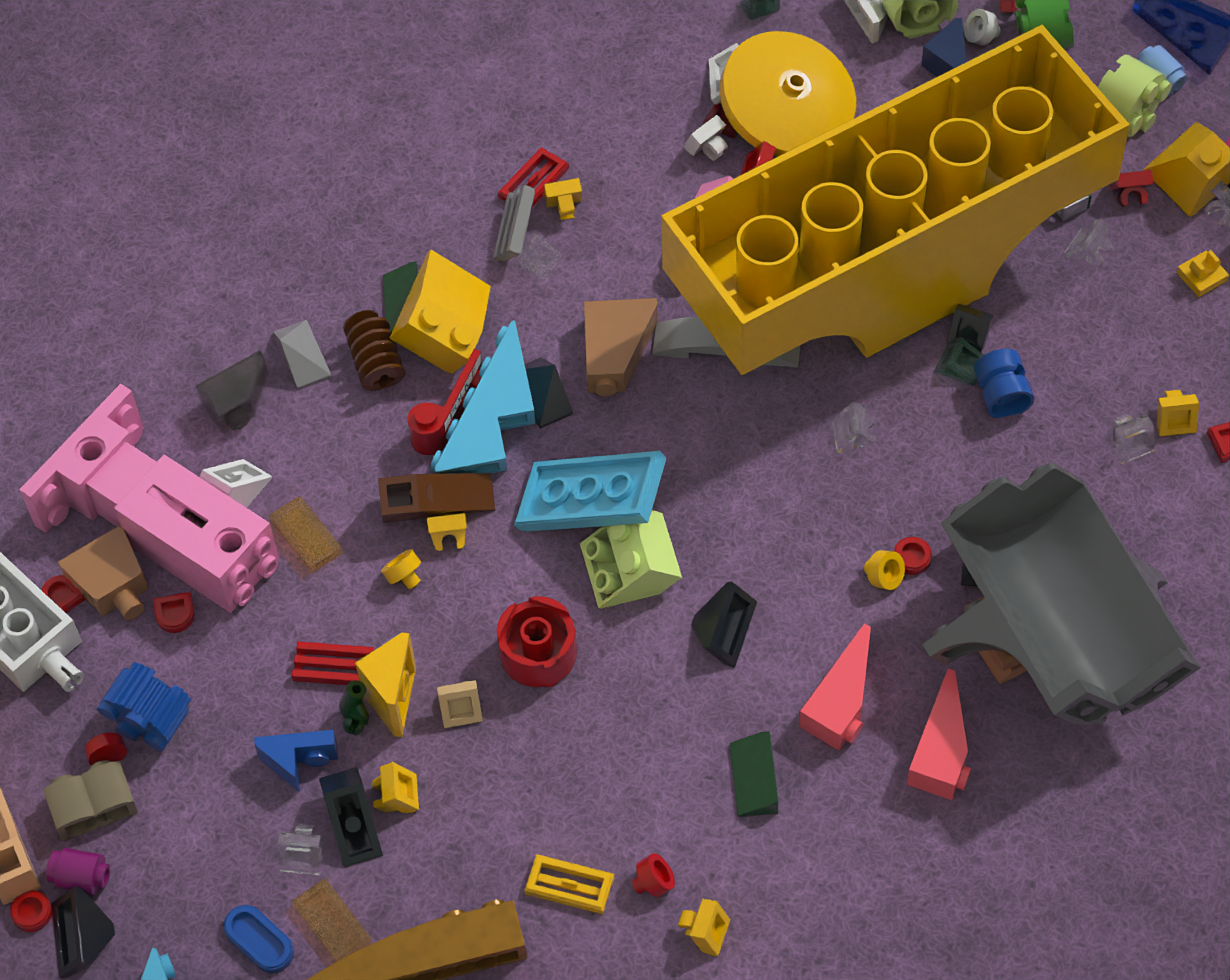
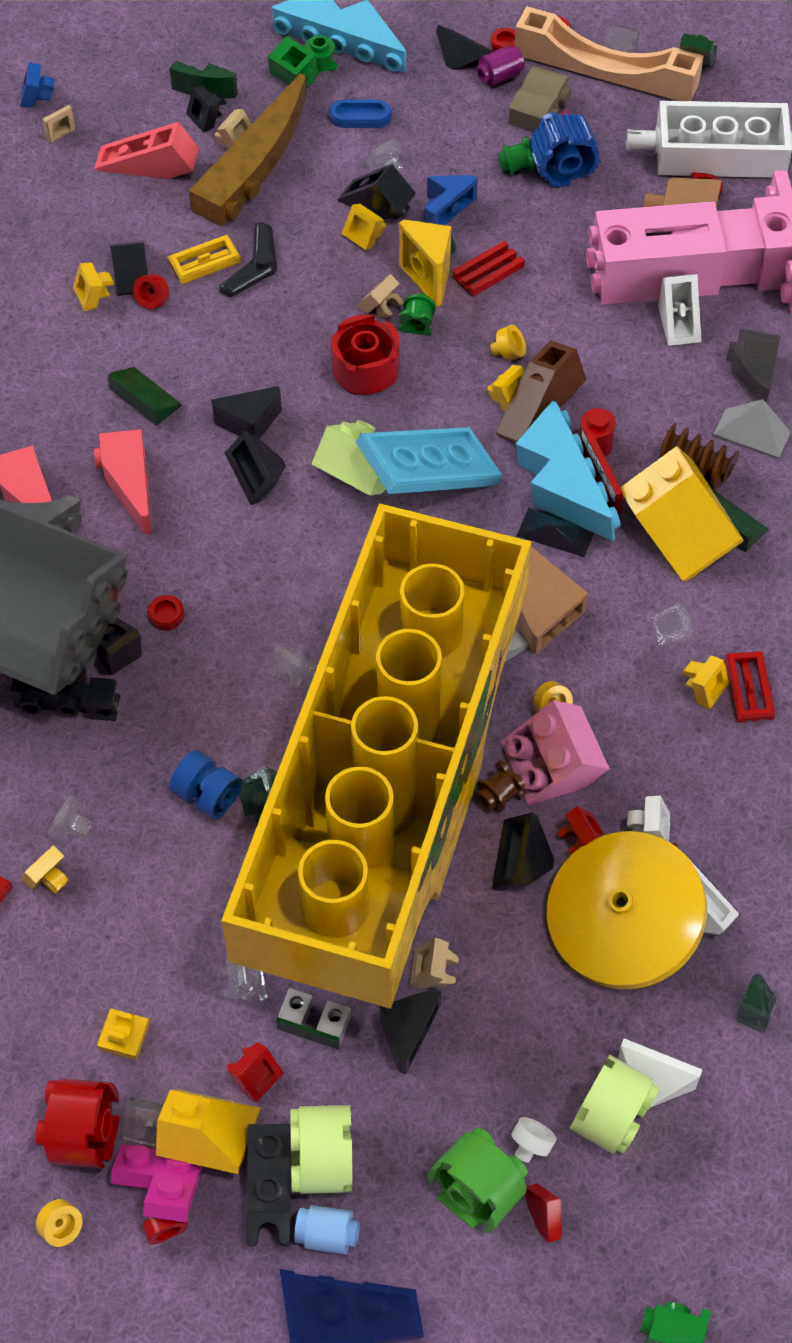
camera: 135 degrees right, 0 degrees up
(184, 749) = (516, 157): none -> green brick
(305, 534) = (600, 325): clear yellow tile -> none
(331, 920) = (327, 148): clear yellow tile -> none
(446, 657) = (417, 314): none -> green brick
(514, 223) = (714, 623): light grey tile -> none
(522, 834) = (260, 267): none -> black piece
(642, 933) = (128, 265): none -> black slope
(684, 671) = (248, 411): none -> black slope
(885, 569) = (174, 579): yellow tile -> none
(945, 49) = (532, 1076): dark blue slope -> none
(1180, 111) = (268, 1181): none -> black plate

